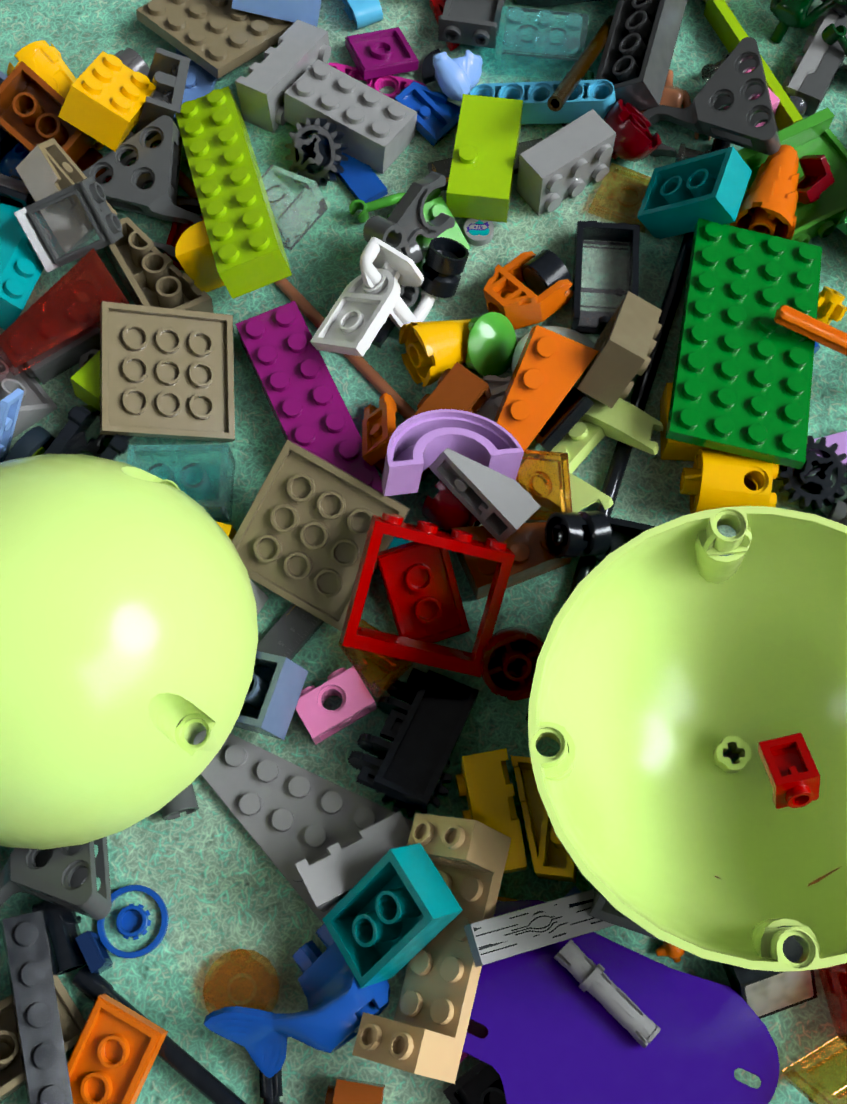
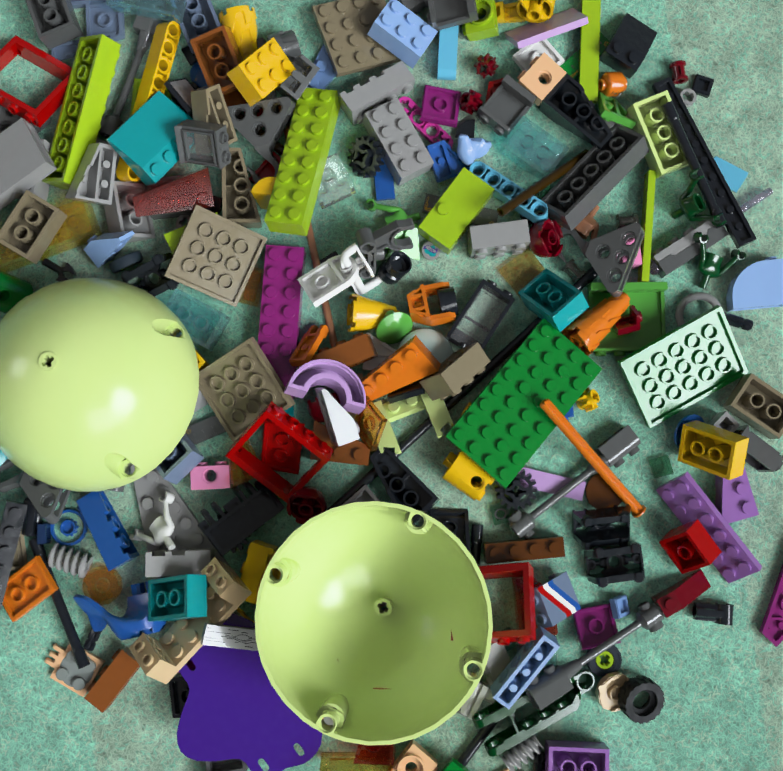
camera: 25 degrees right, 15 degrees up
(162, 975) = (68, 561): none -> light grey piece
(203, 883) = (107, 530): none -> blue wedge
(248, 402) = (253, 289): none -> clear orange plate
(294, 826) = (161, 527): none -> white piece
(420, 28) = (470, 101): none -> dark red gear
(578, 534) = (370, 462): black wheel -> none
(607, 993) = (258, 686): light grey pin -> none
(790, 771) = (368, 650): red bracket -> none

